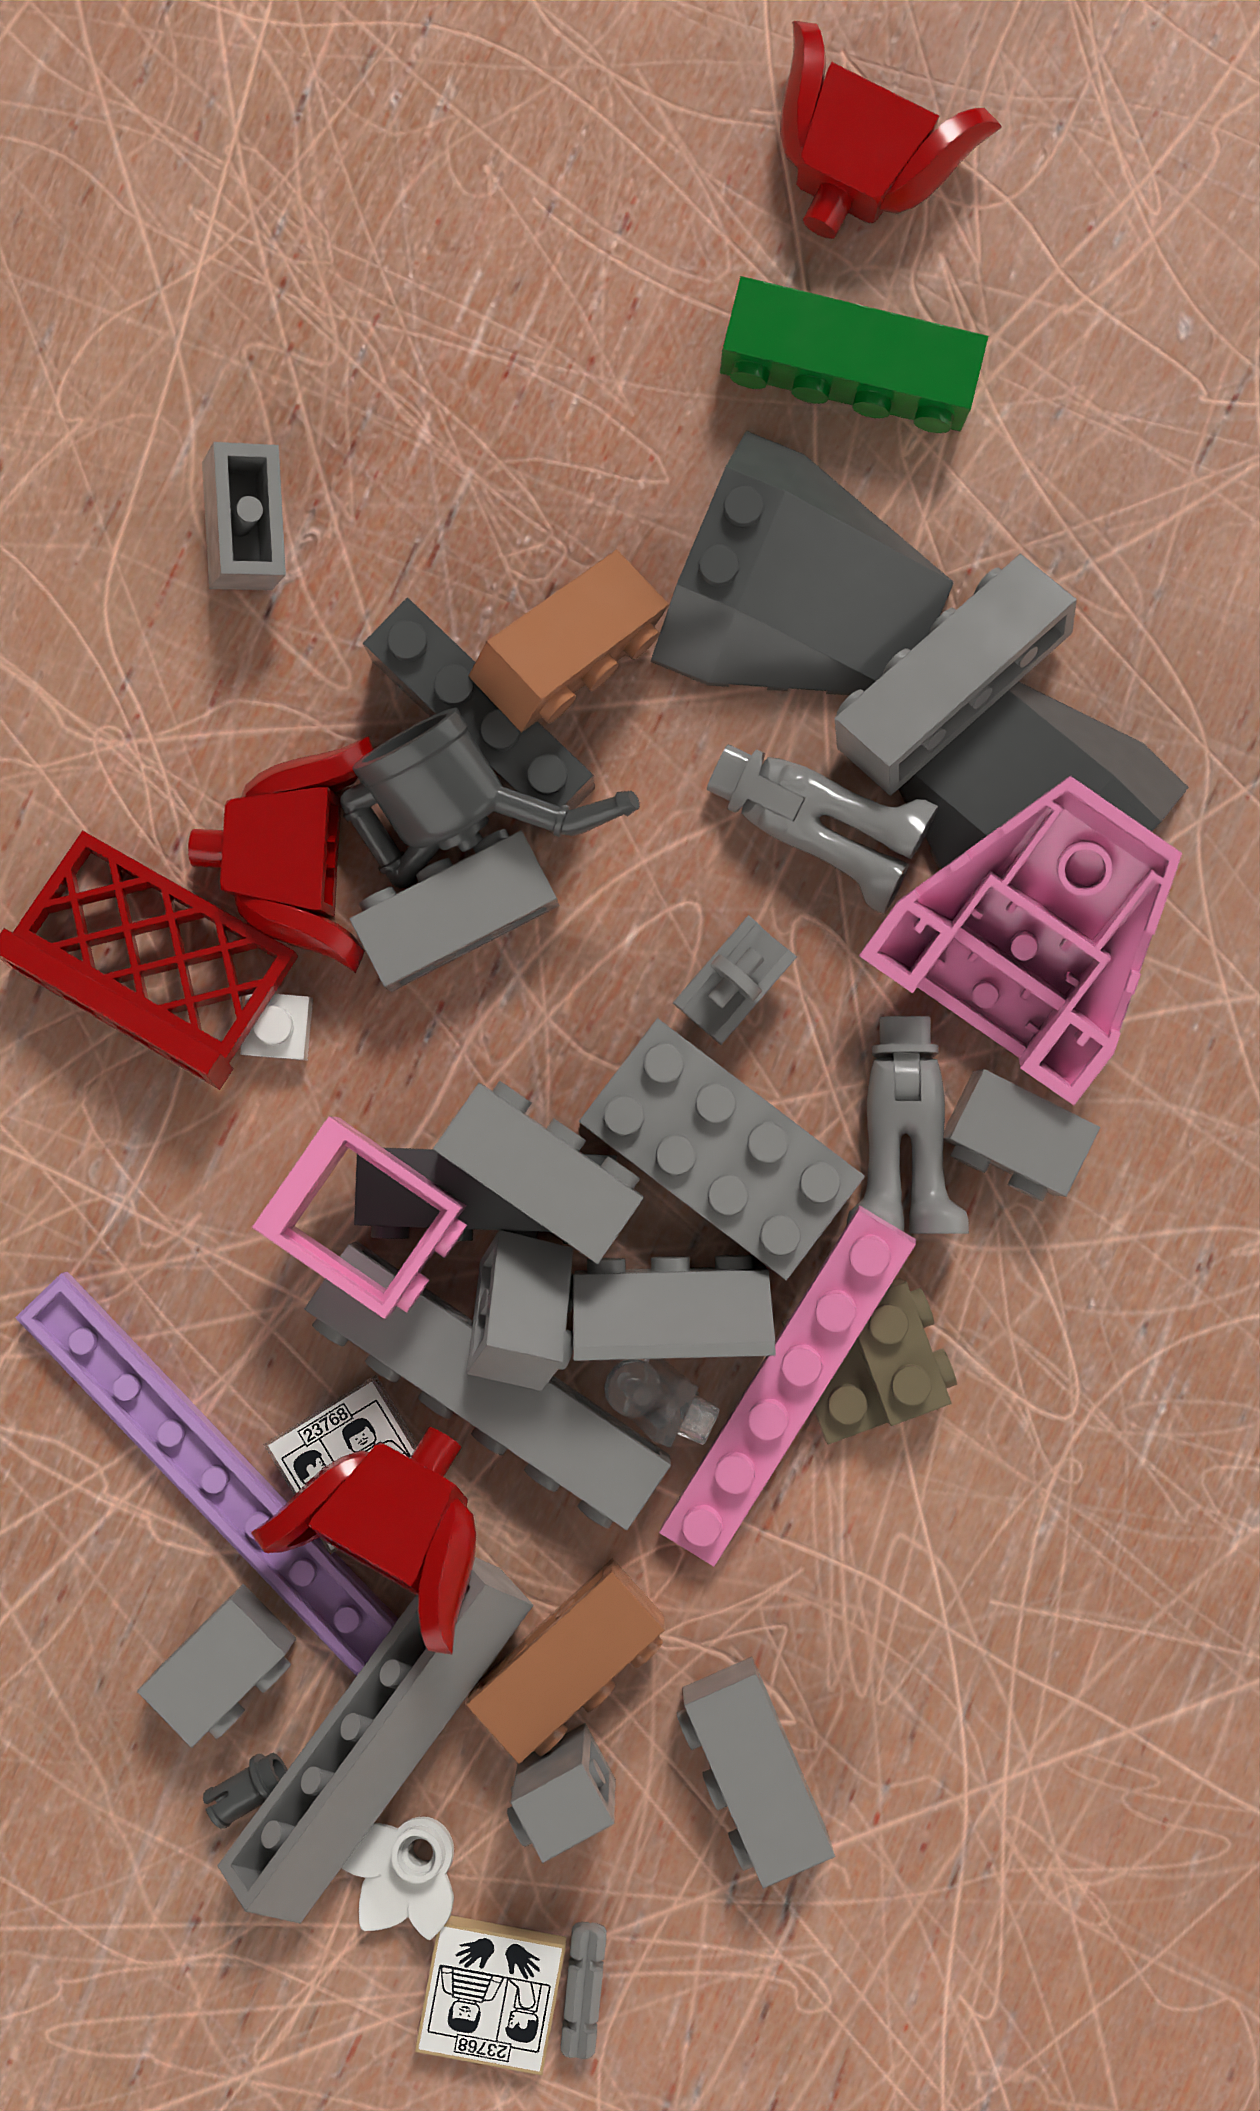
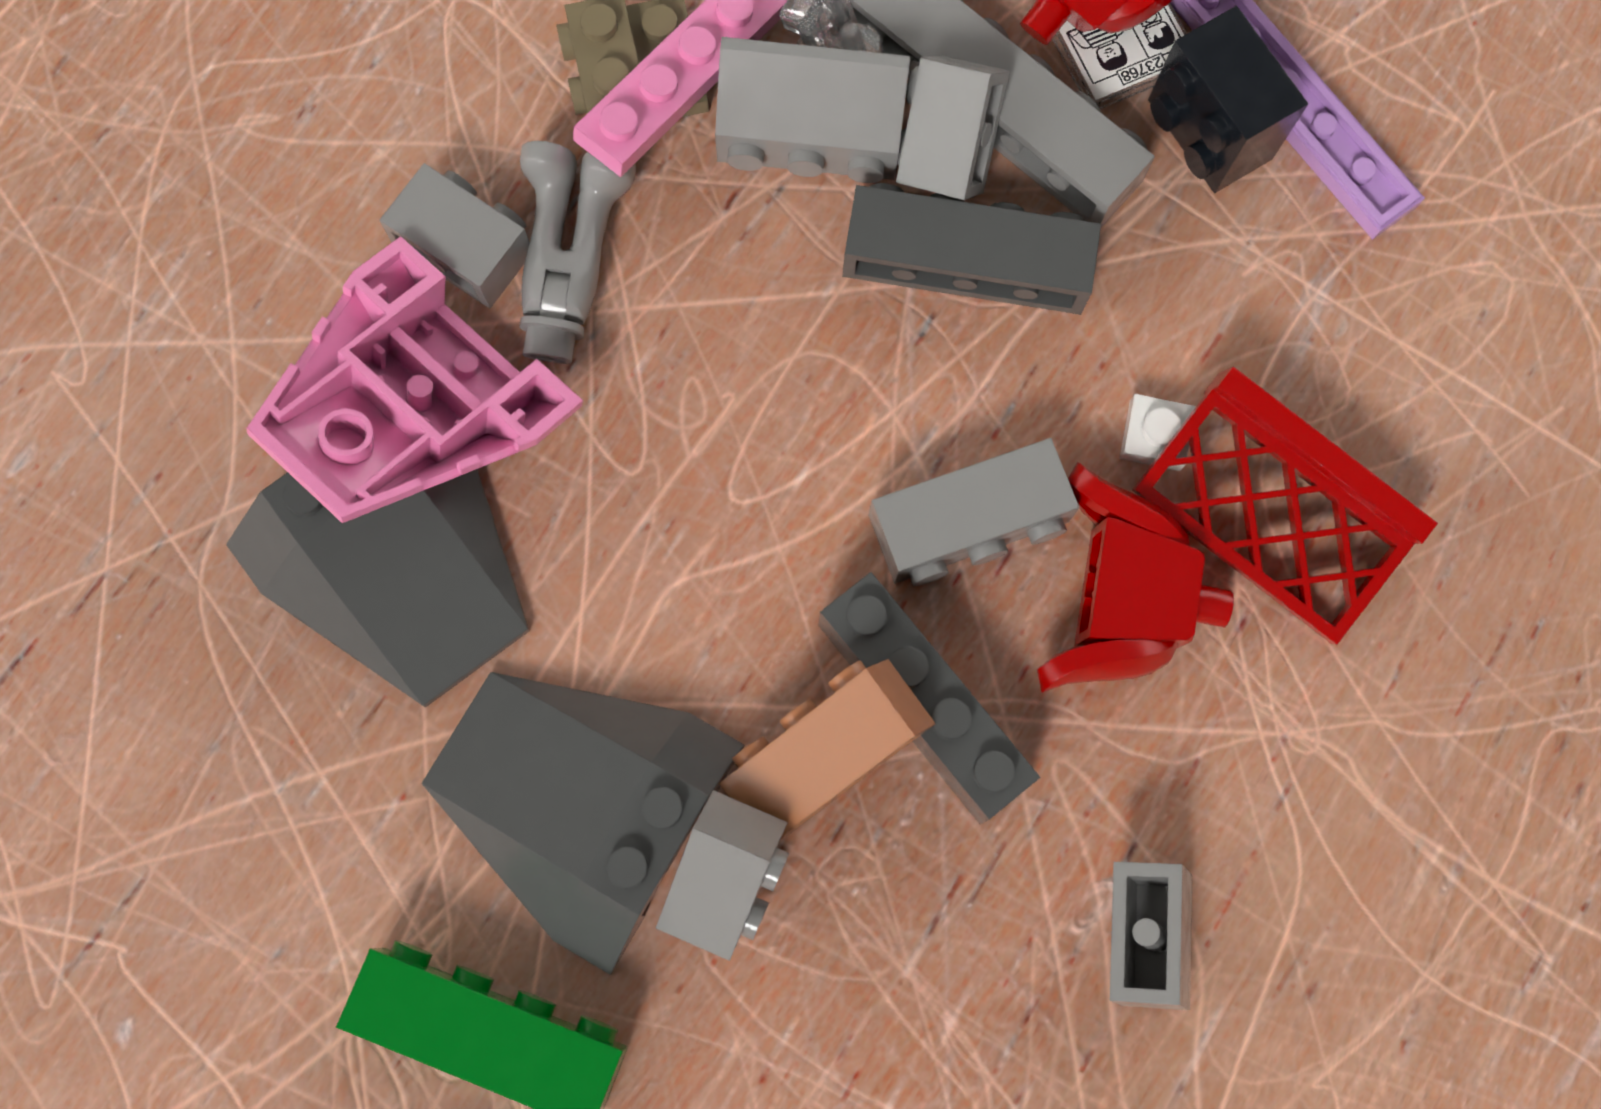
camera: 175 degrees left, 10 degrees down
(234, 1381) = (1225, 100): none -> black brick
(303, 1183) = (1128, 179): bright pink window -> none
(440, 796) = (984, 620): dark grey piece -> none
(540, 1169) = (919, 236): light grey brick -> none
(650, 516) = (721, 874): none -> light grey brick
(721, 1149) = (744, 255): light grey brick -> none
(734, 980) = (706, 406): light grey hips -> none
(788, 805) = (622, 575): light grey piece -> none
(954, 673) = (437, 676): light grey brick -> none

